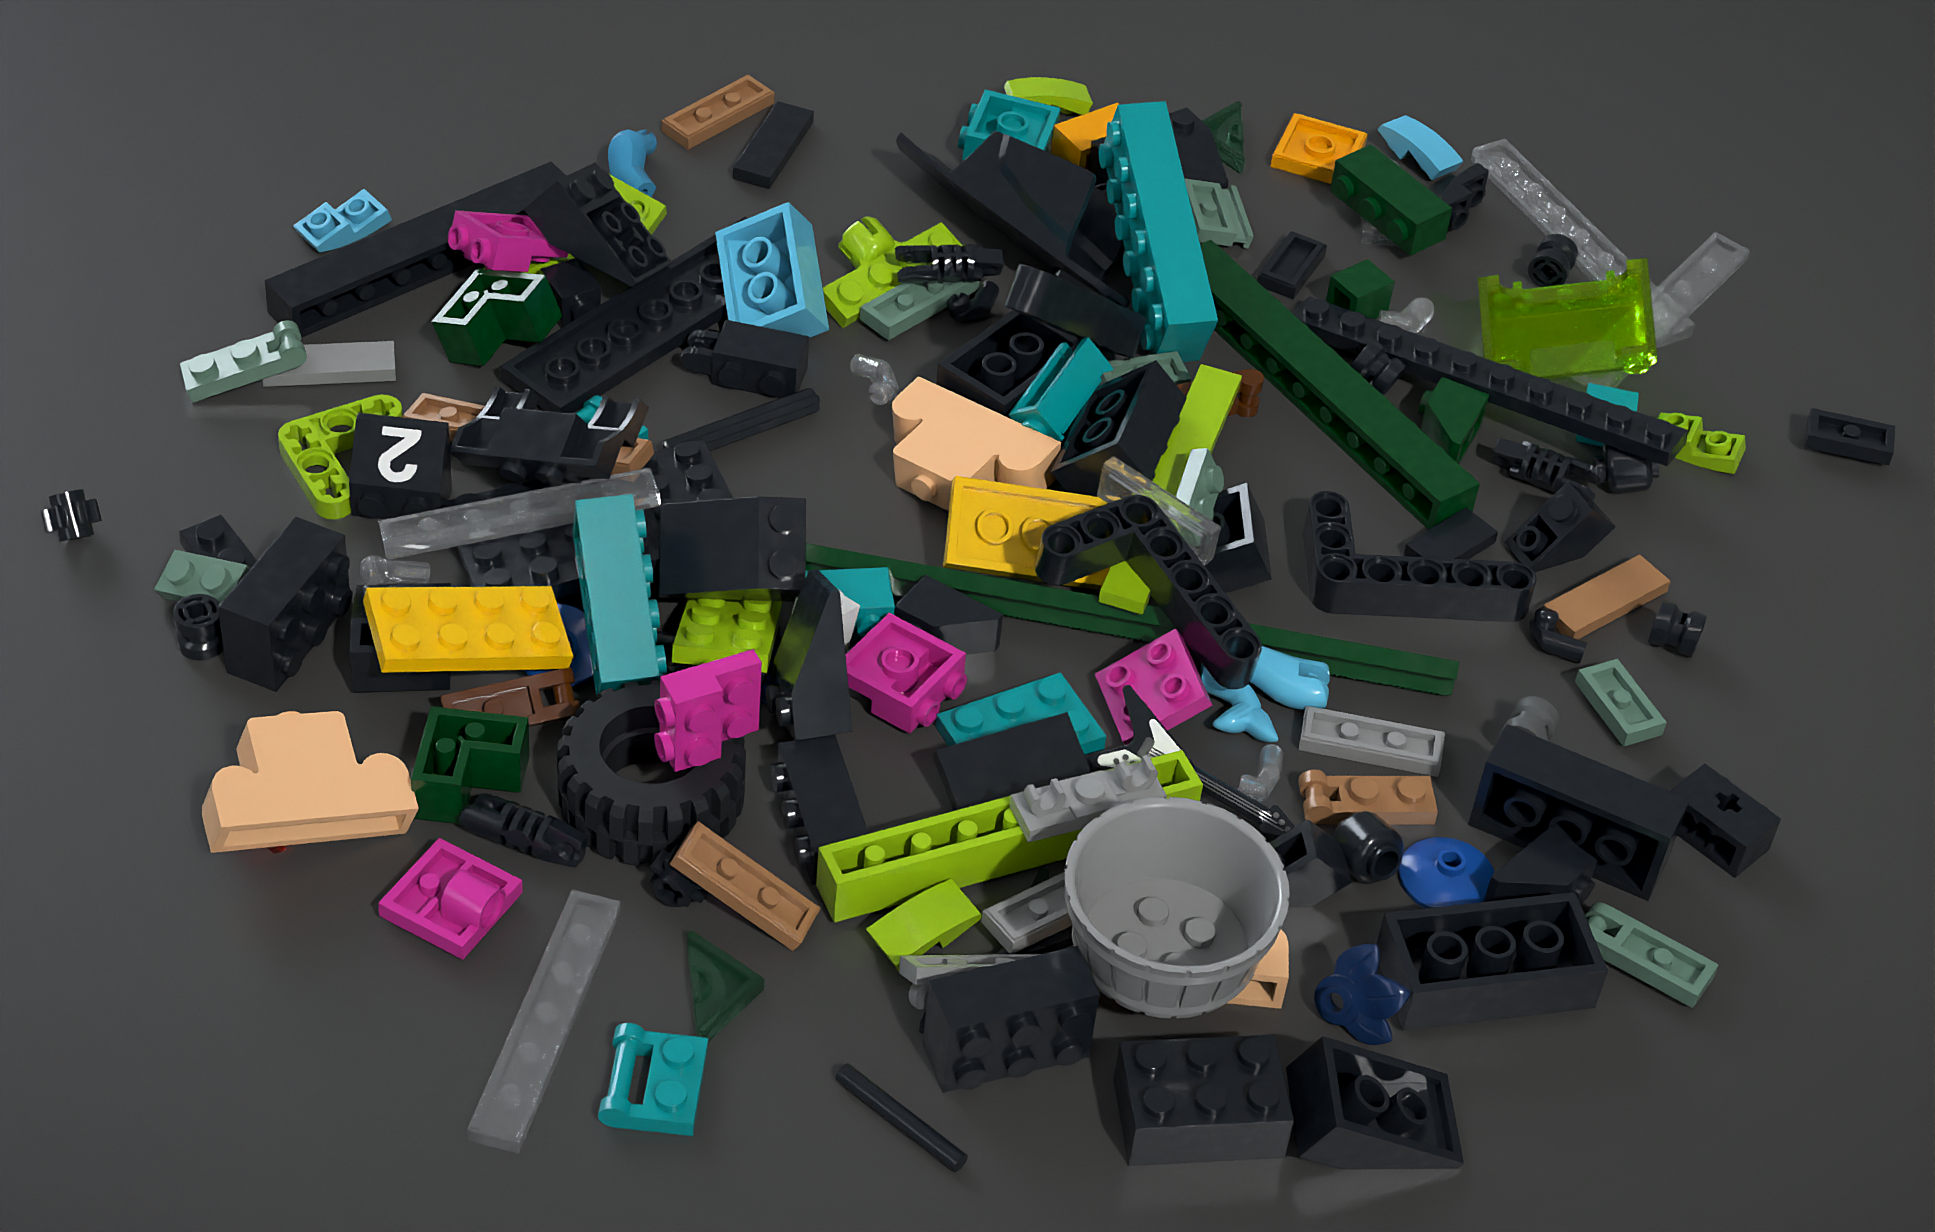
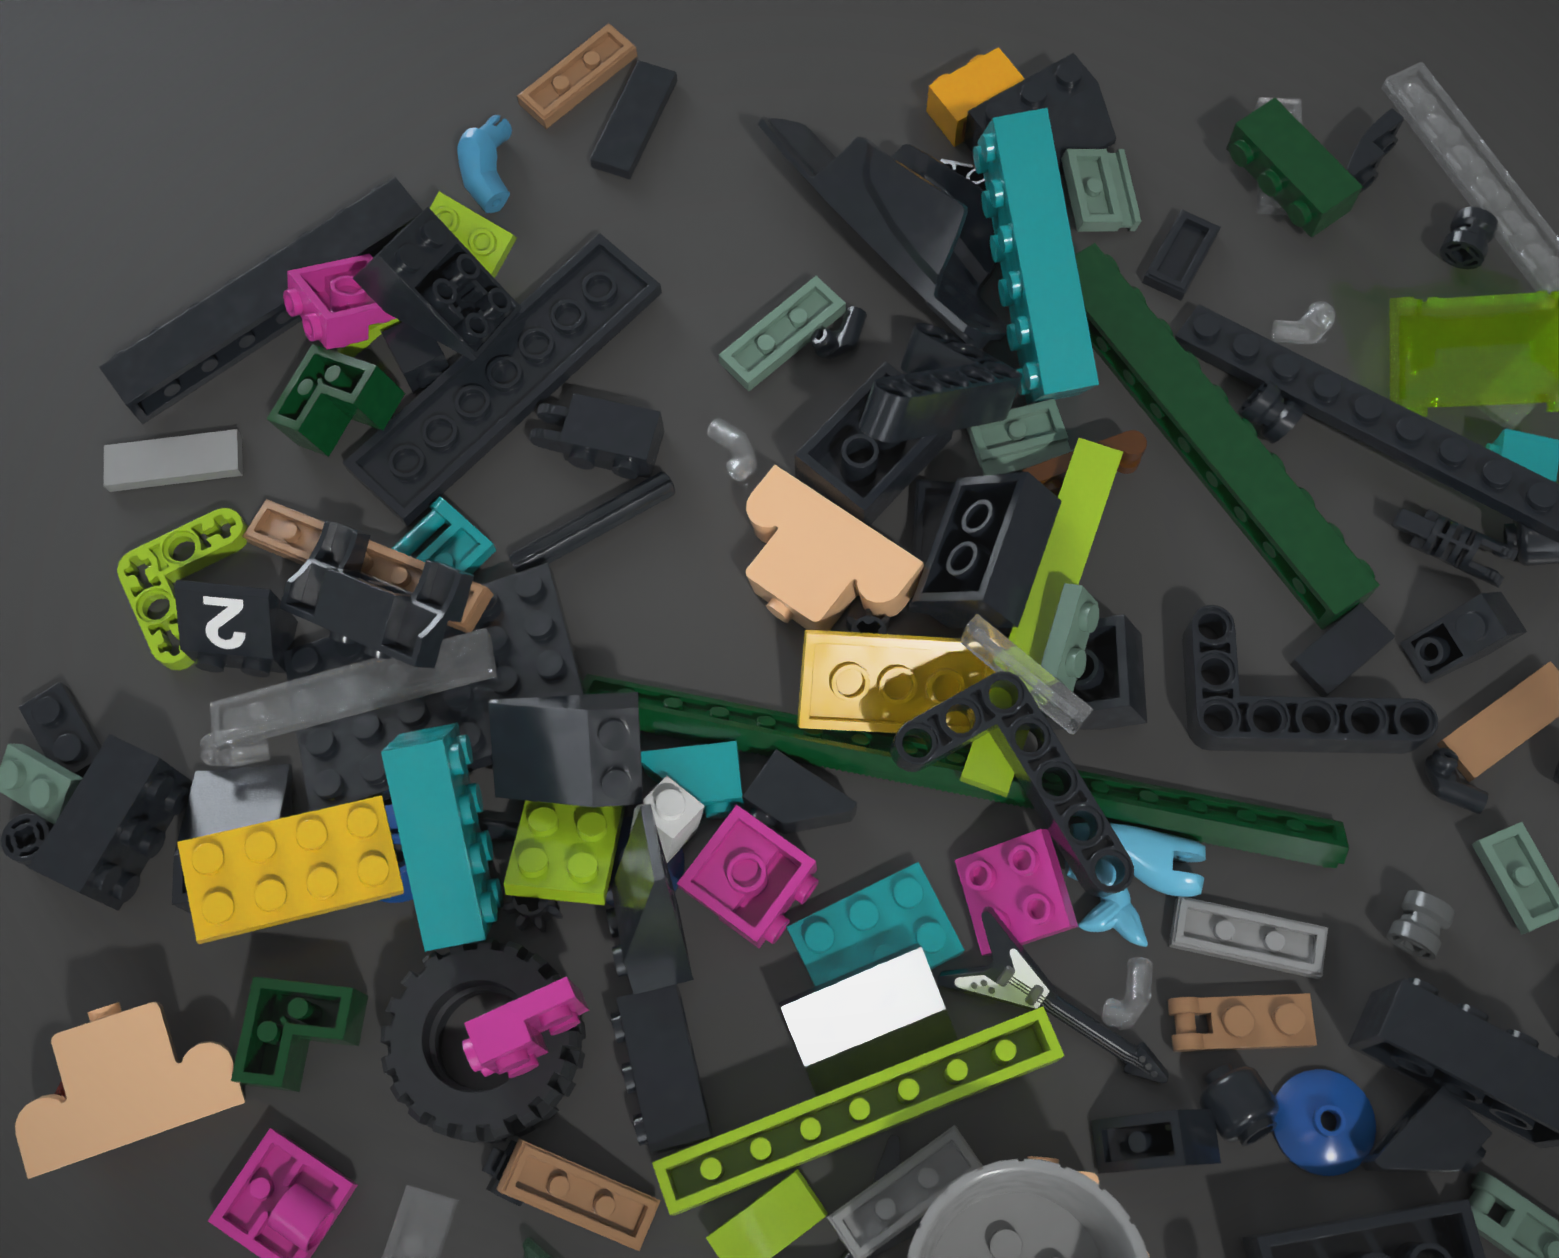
camera: 10 degrees right, 25 degrees up
(244, 362) = (82, 473): sand green plate -> none
(336, 228) = (183, 269): medium azure slope -> none
(521, 697) = (345, 939): reddish brown plate -> none
(525, 830) = (358, 1107): black hinge -> none
(773, 272) = (624, 328): medium azure slope -> none
(875, 266) = (746, 291): lime plate -> none
(948, 263) = (811, 296): black hinge -> none
(1011, 116) = (880, 90): teal plate -> none
(1052, 91) = (915, 30): lime slope -> none
(1061, 389) = (923, 489): teal window -> none
(1078, 800) = (939, 1092): light grey plate -> none
(1229, 135) = (1114, 70): clear green tile -> none
(1313, 146) = (1215, 84): light orange tile -> none
(1361, 289) = (1256, 297): dark green brick -> none
(1430, 150) = (1333, 76): medium azure slope -> none
(1453, 416) = (1349, 480): dark green slope -> none

